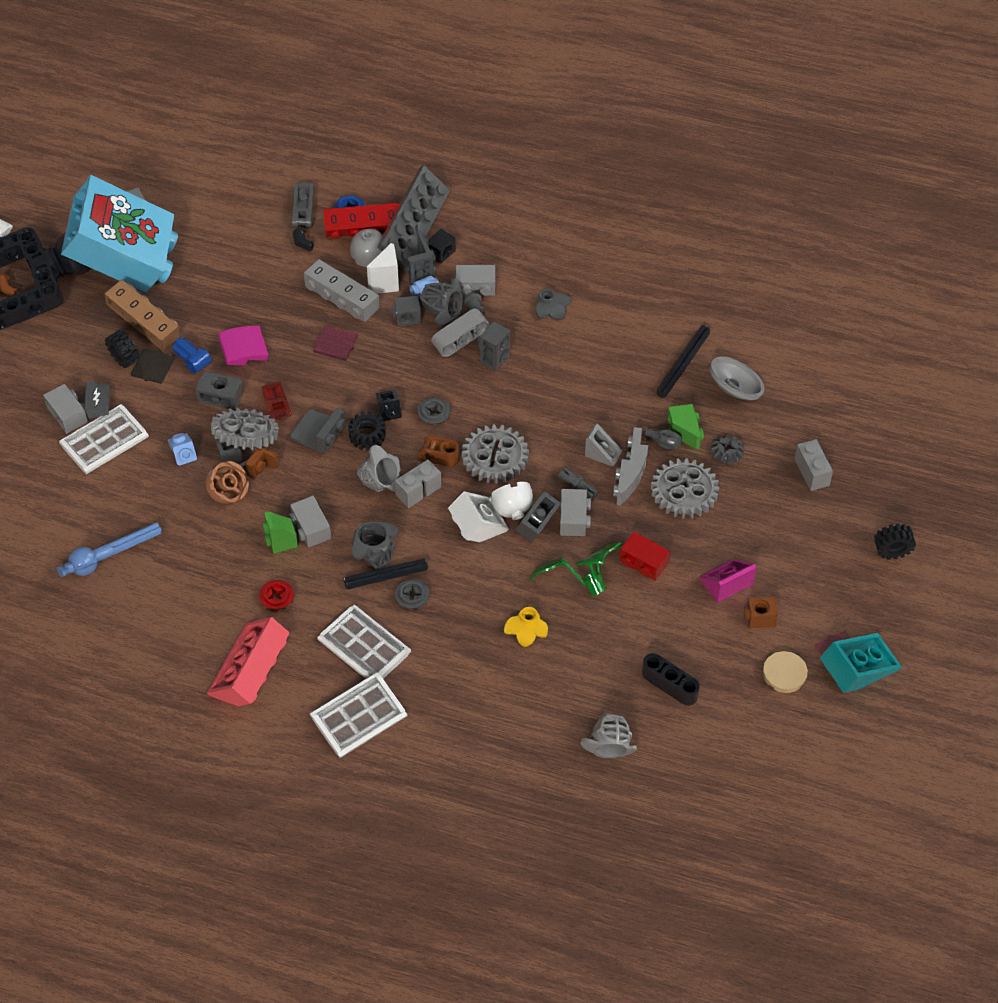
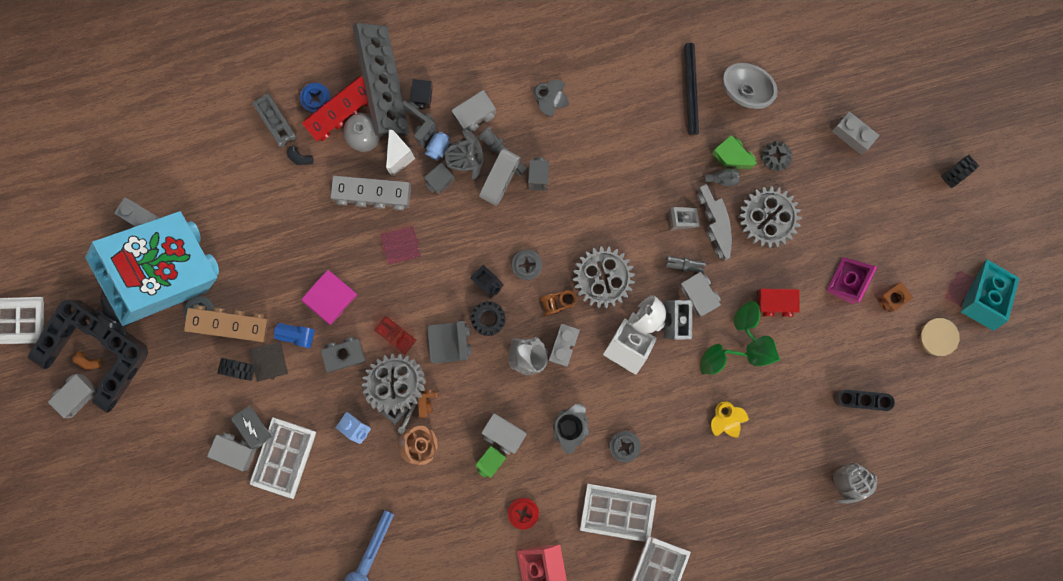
camera: 30 degrees left, 30 degrees up
(385, 573) = (592, 440): black axle -> none

